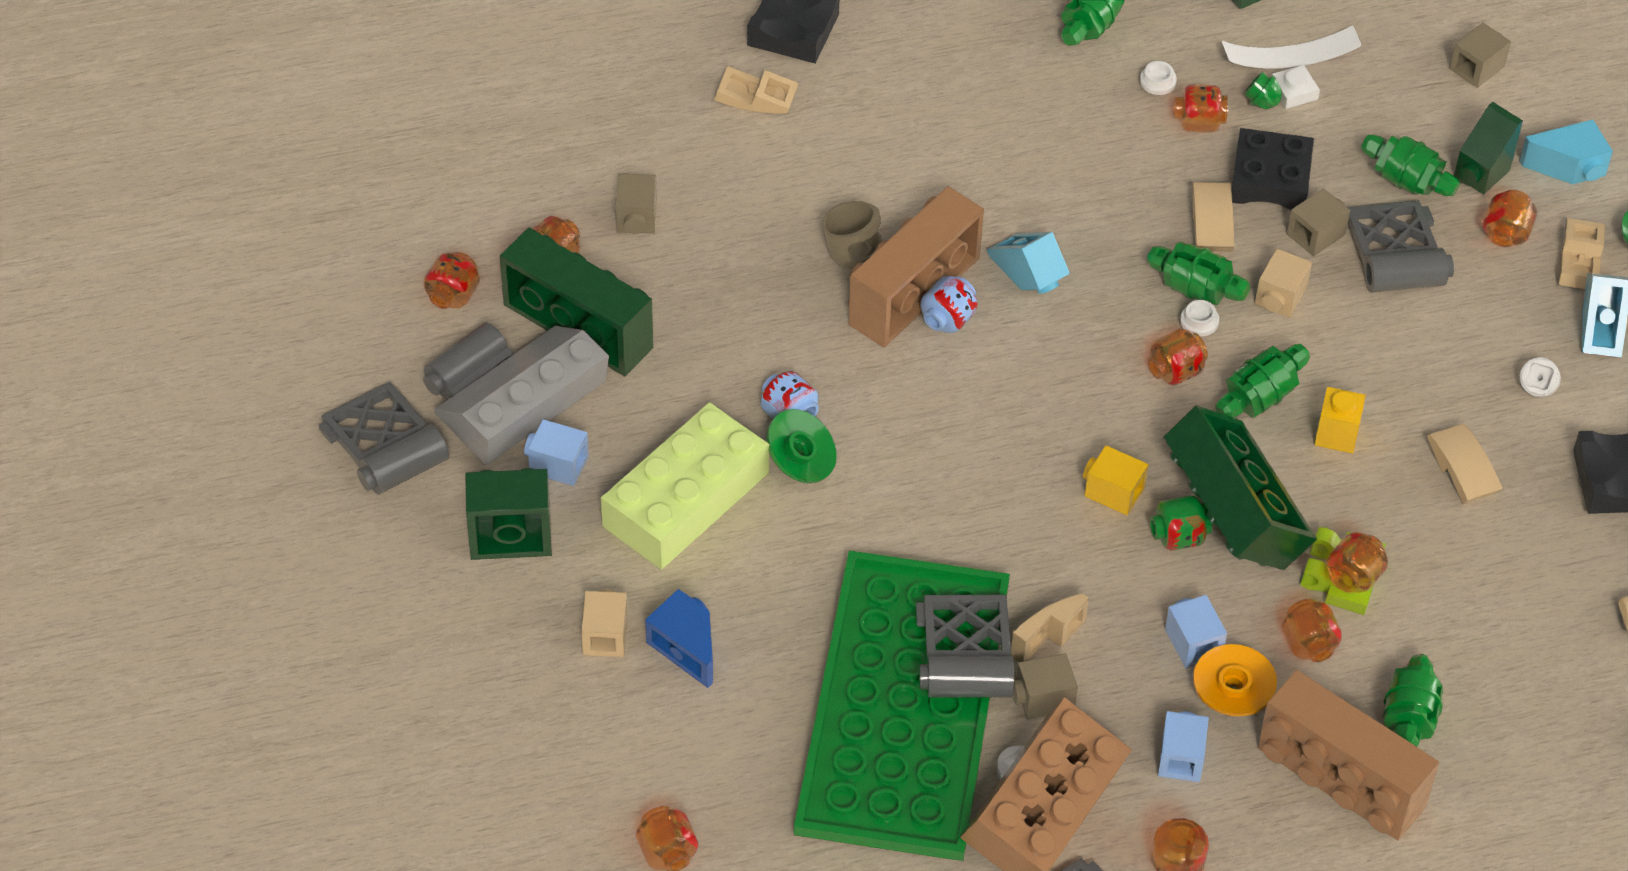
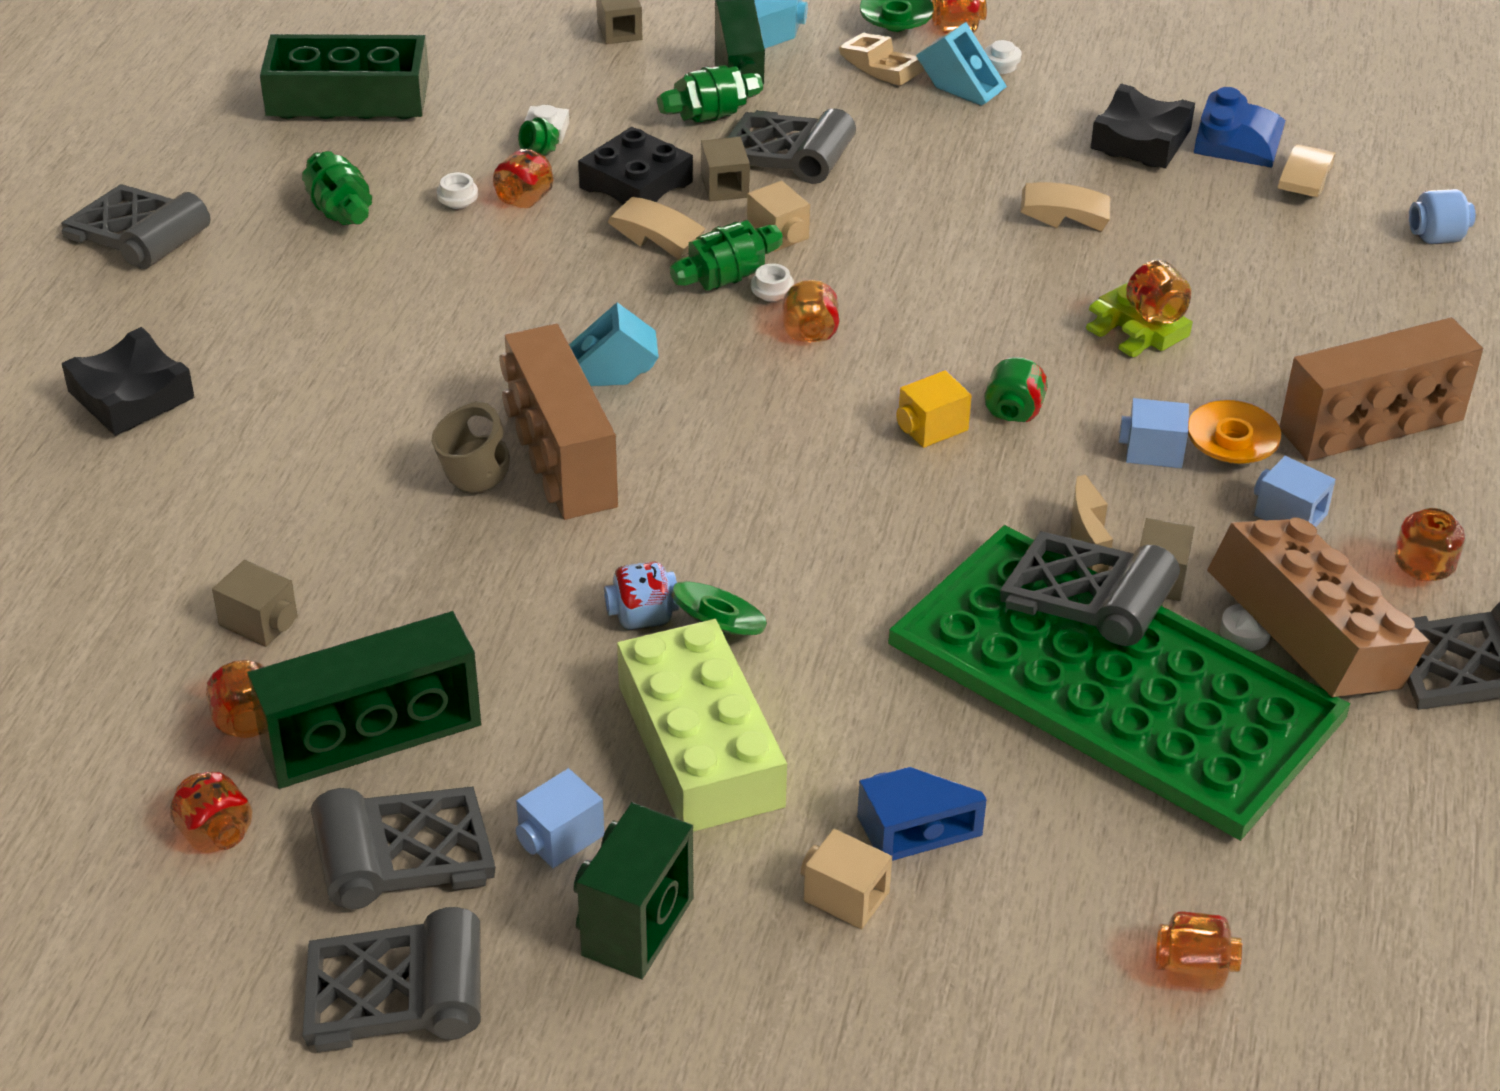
camera: 60 degrees left, 10 degrees down
(524, 390) = (450, 805): light grey slope -> none
(764, 95) = (194, 451): tan slope -> none
(949, 304) = (630, 423): light blue head -> none
(1239, 488) = (1022, 324): dark green brick -> none
(1263, 381) = (890, 270): green piece -> none
(1294, 55) = (511, 102): white sticker -> none
(1311, 630) = (1202, 363): clear orange head -> none
(1340, 420) = (970, 246): yellow brick -> none
(1413, 700) = (1321, 324): green piece -> none
(1510, 218) = (817, 70): clear orange head -> none
(1540, 377) = (1001, 129): white tile -> none

